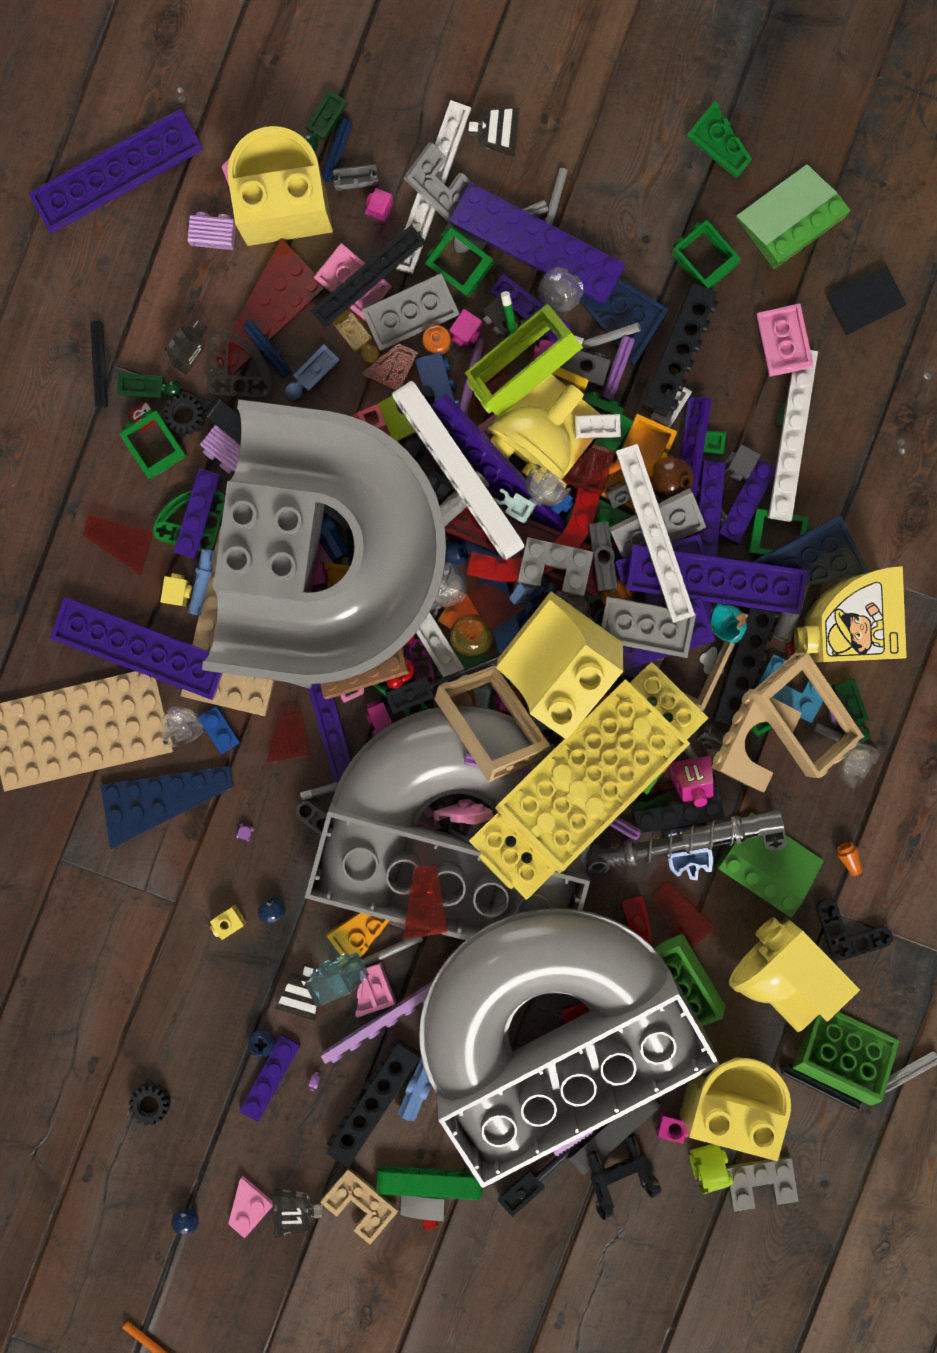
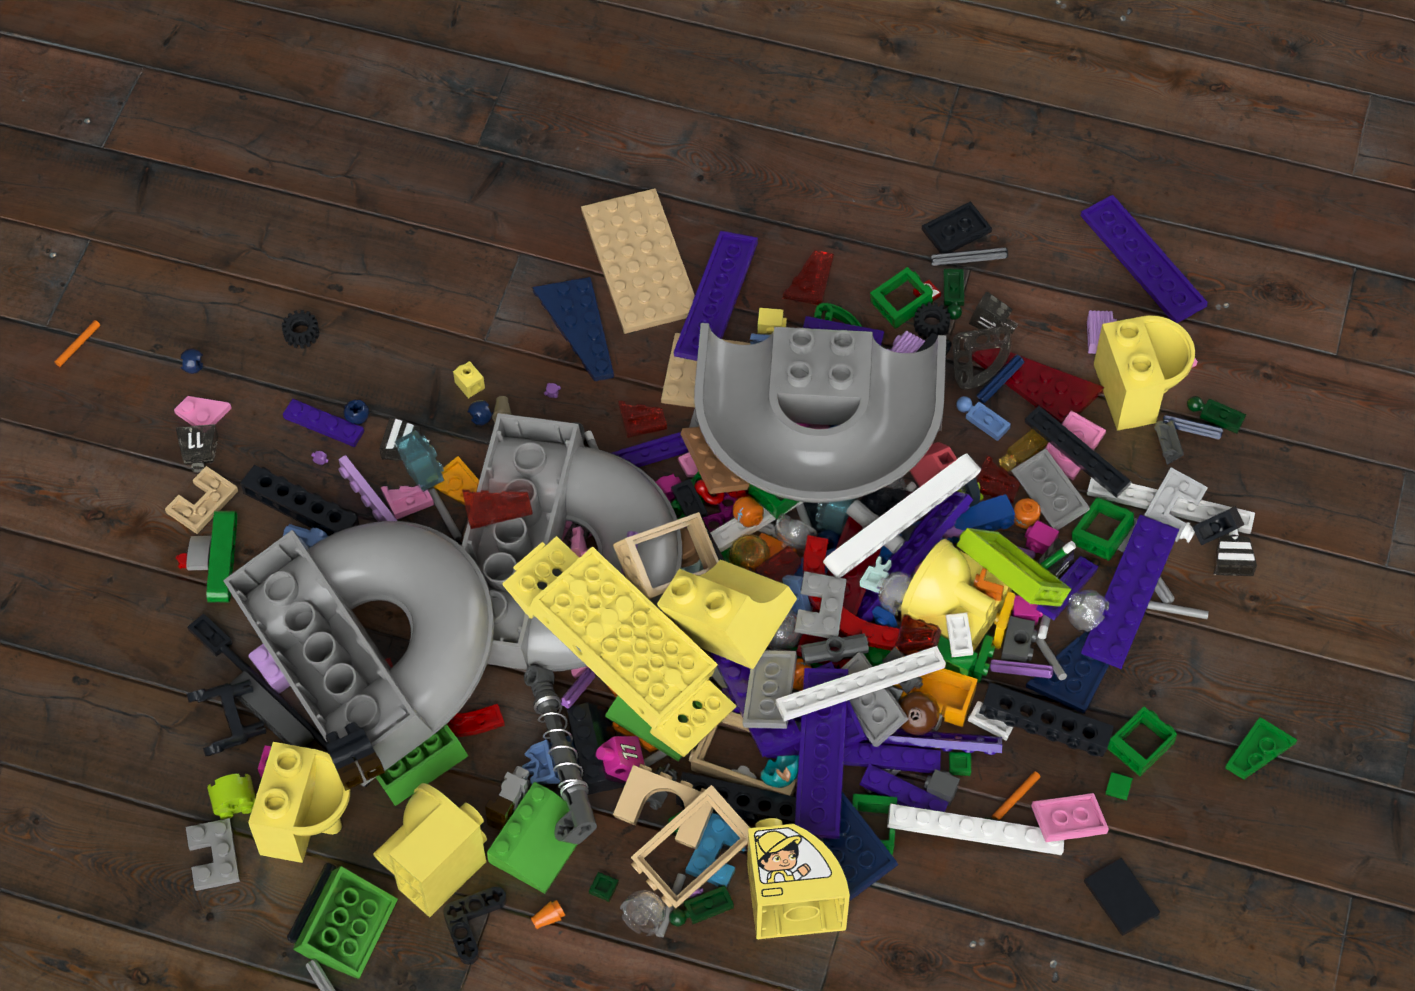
camera: 90 degrees right, 30 degrees down
(59, 374) = (956, 228): none -> black tile
(180, 725) = (646, 330): clear cylinder -> none
(219, 730) = (645, 365): blue plate -> none
(270, 887) = (502, 407): none -> dark tan cone
(379, 204) = (1149, 456): dark pink brick -> none
(427, 634) = (748, 511): none -> orange head
(469, 172) = (1187, 533): none -> white bush
(471, 139) = (1218, 525): none -> black brick
(554, 388) = (991, 589): none -> orange bracket
(681, 914) = (485, 761): clear red wing -> none
(720, 1057) = (350, 748): none -> hips
(731, 892) = (513, 791): none -> hips
(749, 287) = (1119, 786): none -> green tile
(753, 391) = (1012, 800): none -> orange bar
(792, 215) = (1194, 820): bright green slope -> none
(821, 803) = (603, 886): none -> dark green tile

